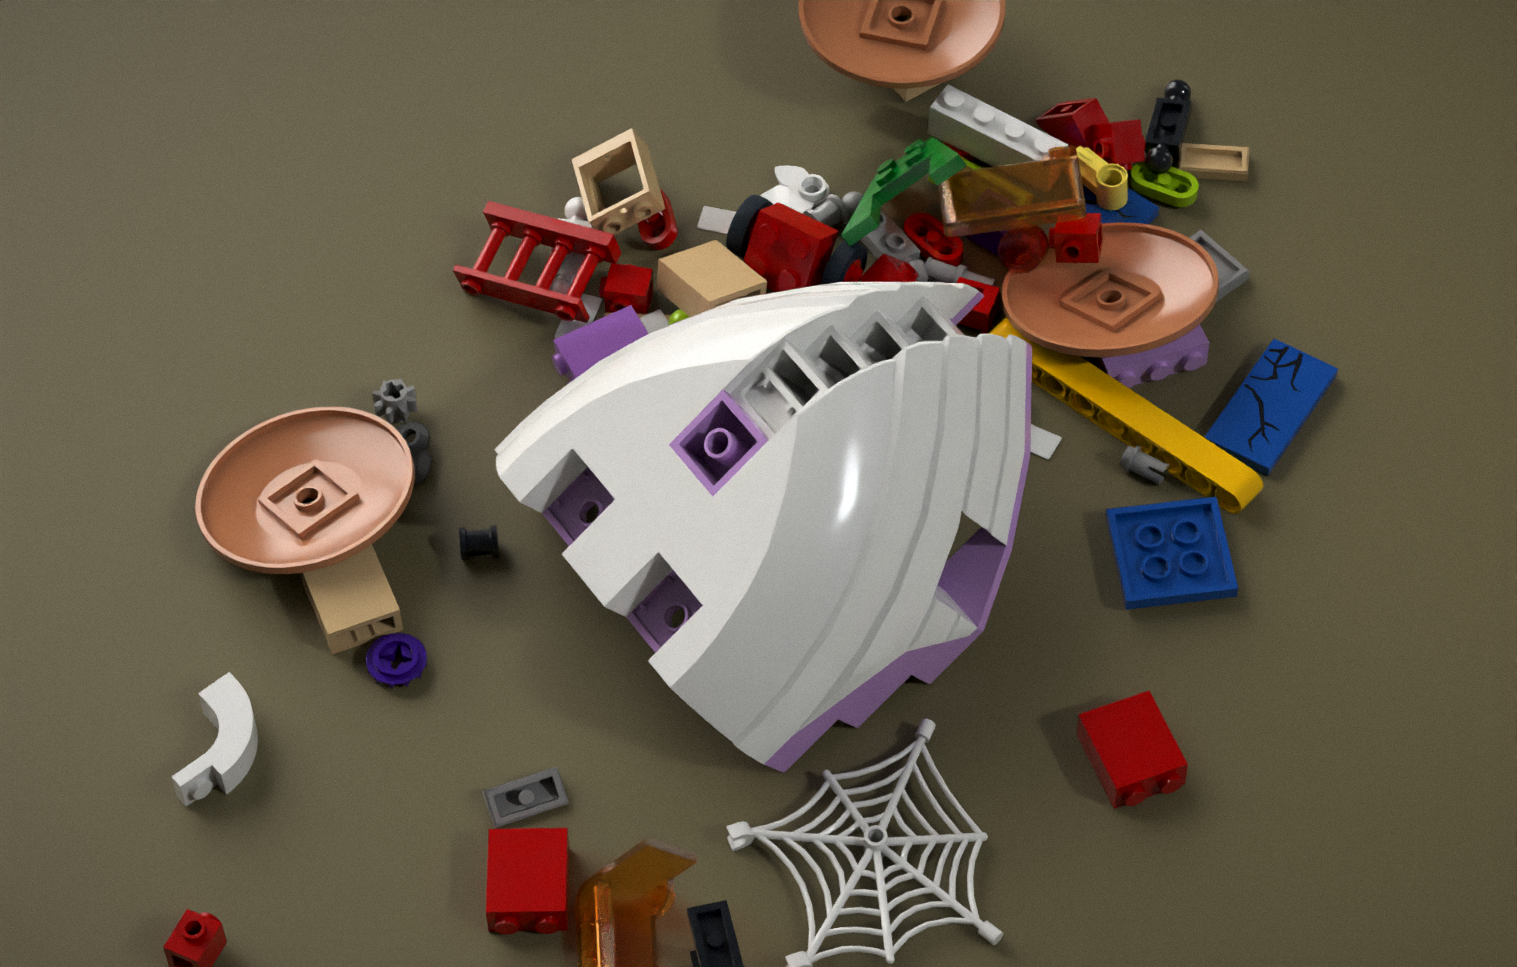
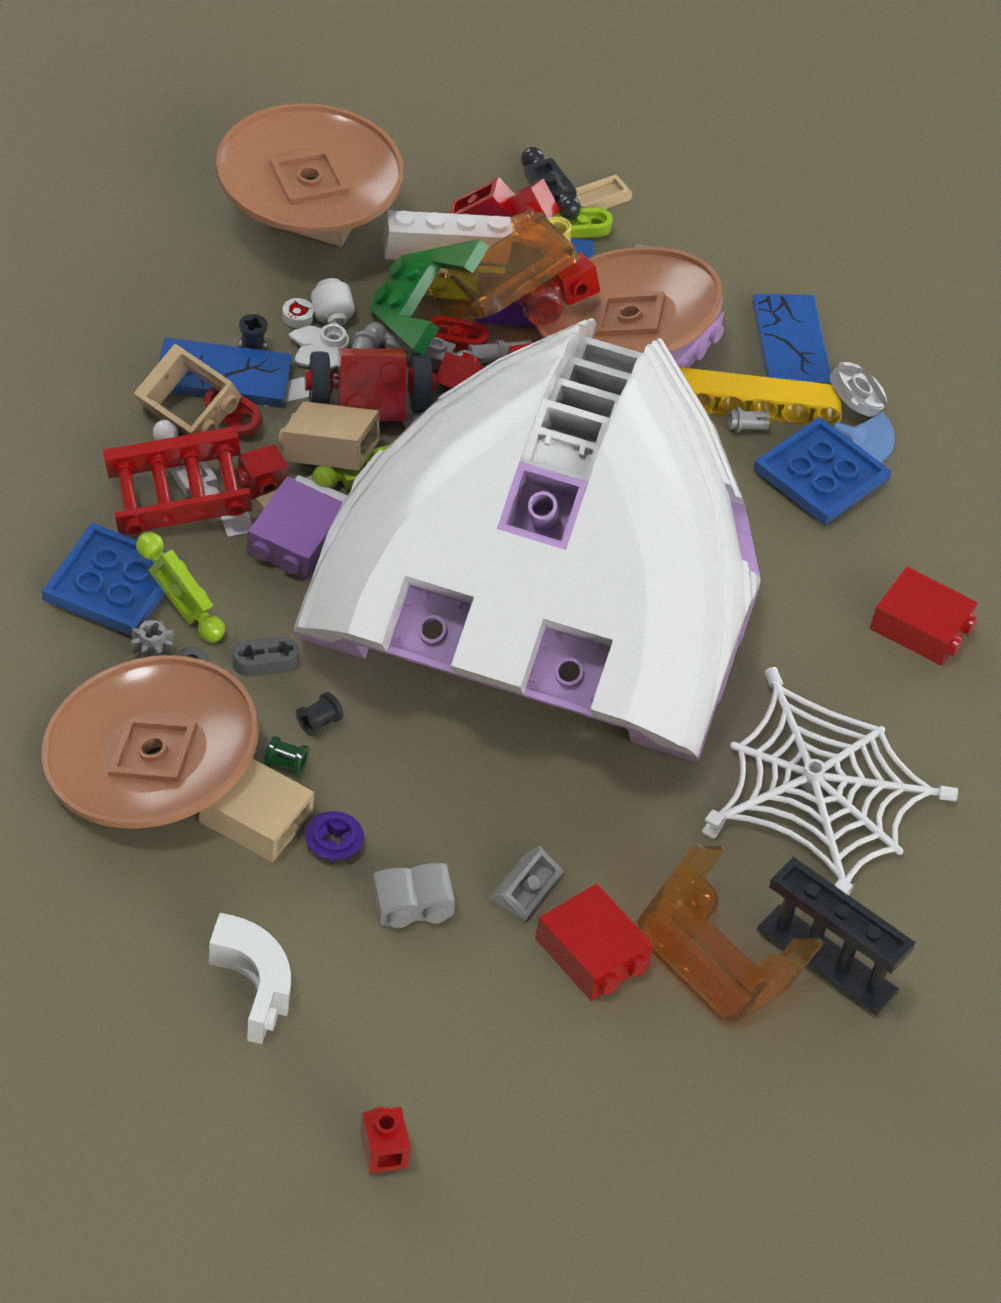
camera: 45 degrees left, 5 degrees down
(411, 749) = (413, 895): none -> light grey brick
(414, 326) = (105, 581): none -> blue plate
(417, 566) = (298, 755): none -> dark green bush
(454, 346) = (180, 587): none -> lime plate
(481, 468) = (265, 656): none -> dark grey beam
(693, 179) = (255, 373): none -> blue tile
(740, 149) = (253, 330): none -> black bush
(804, 150) = (298, 313): none -> white tile
(839, 154) = (332, 302): none -> white head
(1259, 546) = (873, 436): none -> medium blue hand
(1283, 488) = (857, 390): none -> light grey tile

